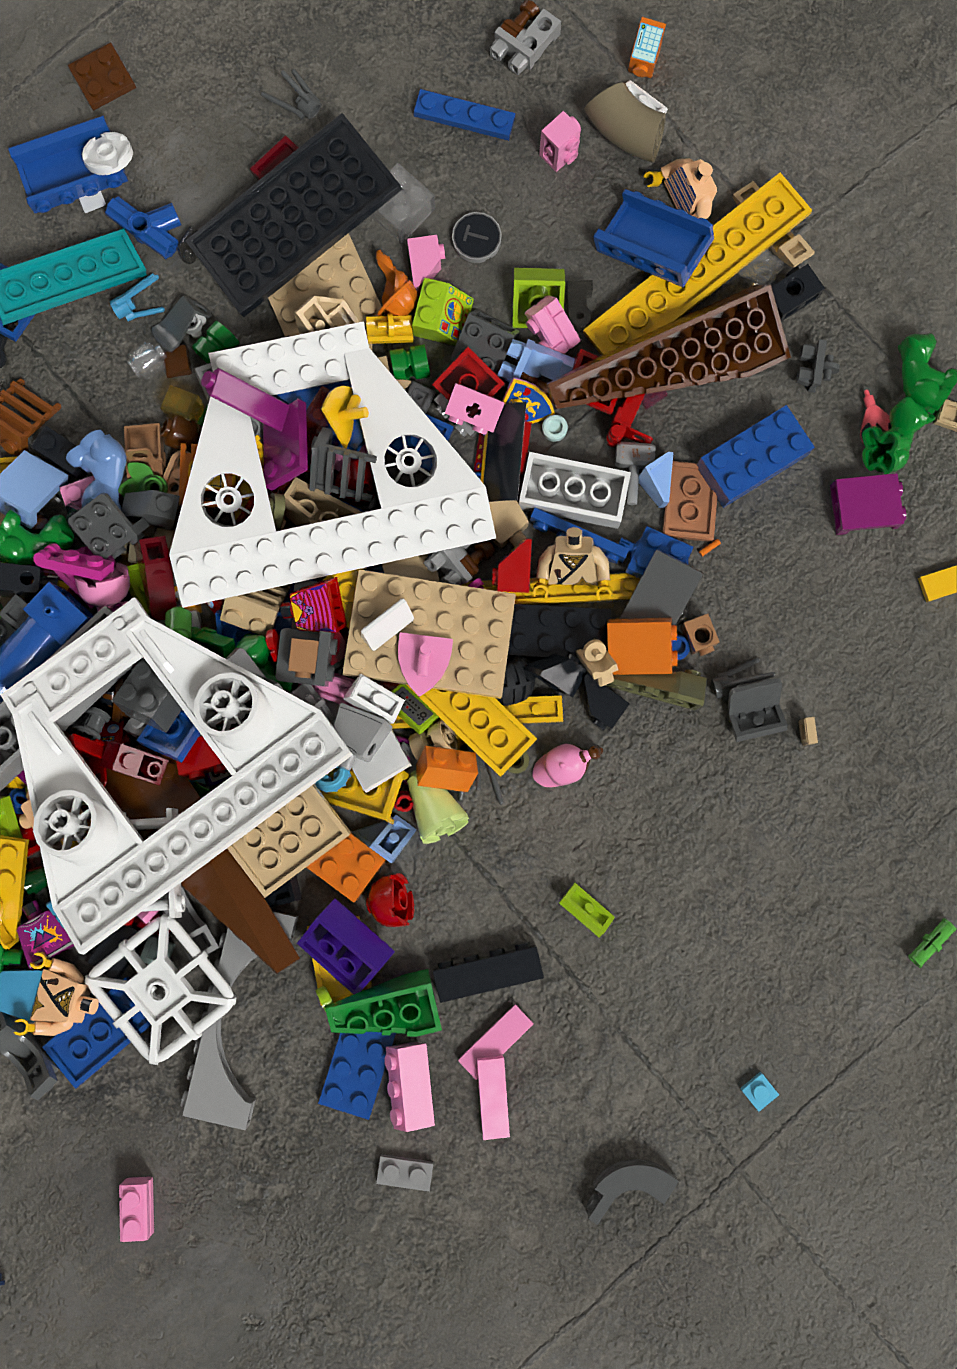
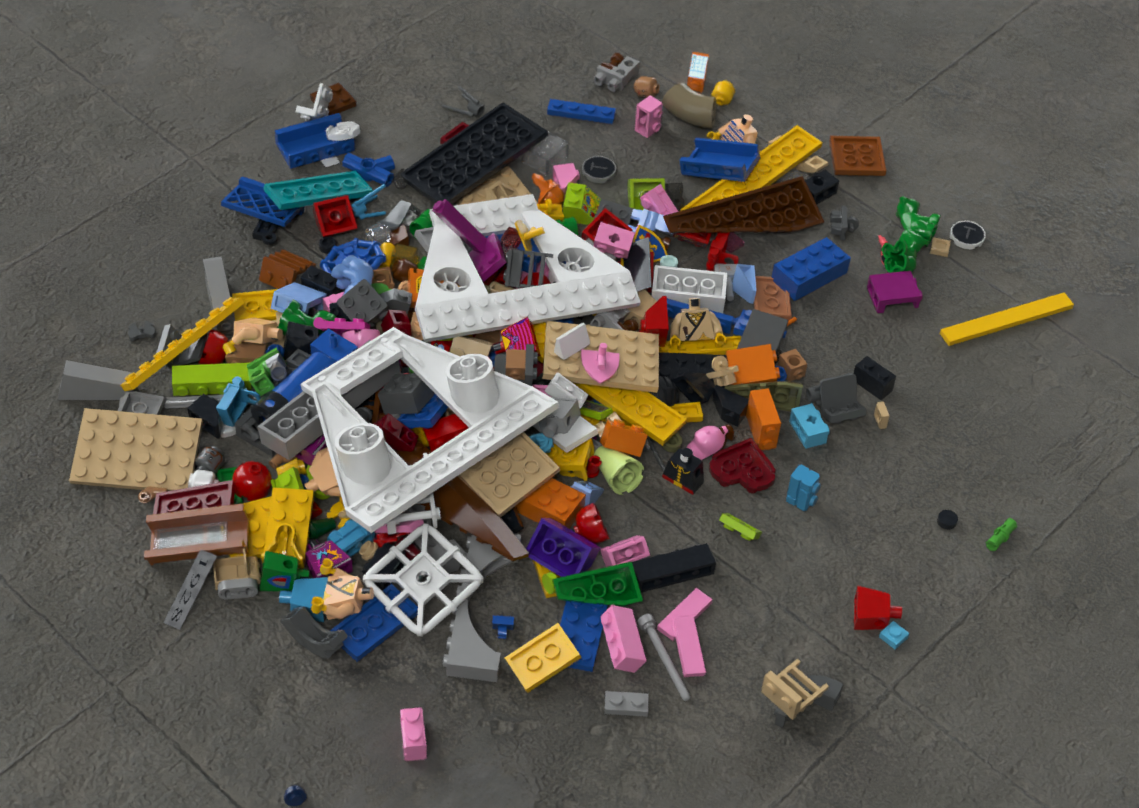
camera: 10 degrees left, 35 degrees down
(75, 103) = (321, 104): none -> white bracket
(79, 369) = (326, 244): none -> black tile
(88, 325) = (334, 216): none -> red slope
(106, 398) = (353, 248): none -> blue plate
(155, 396) = (387, 249): none -> yellow cone
(261, 1048) = (503, 624): none -> blue tile
(305, 1109) = (542, 657): none -> yellow plate
(428, 949) = (625, 551): none -> bright pink brick
(445, 1057) = (647, 624): none -> light grey piece
(524, 817) = (685, 470): none -> black torso
(566, 71) = (646, 86): none -> medium nougat head
(594, 1201) = (788, 693): none -> tan plate
(607, 806) = (744, 465): none -> dark red plate
(643, 740) = (763, 419): none -> orange brick
(679, 863) = (803, 488): none -> dark azure brick
(680, 88) = (723, 92): none -> yellow head
(701, 757) = (809, 425): none -> medium azure brick
(739, 1057) = (873, 609): none -> red torso
(809, 665) = (874, 378): none -> black brick
(862, 227) = (857, 155): none -> dark orange plate
(864, 910) = (947, 519): none -> black tile

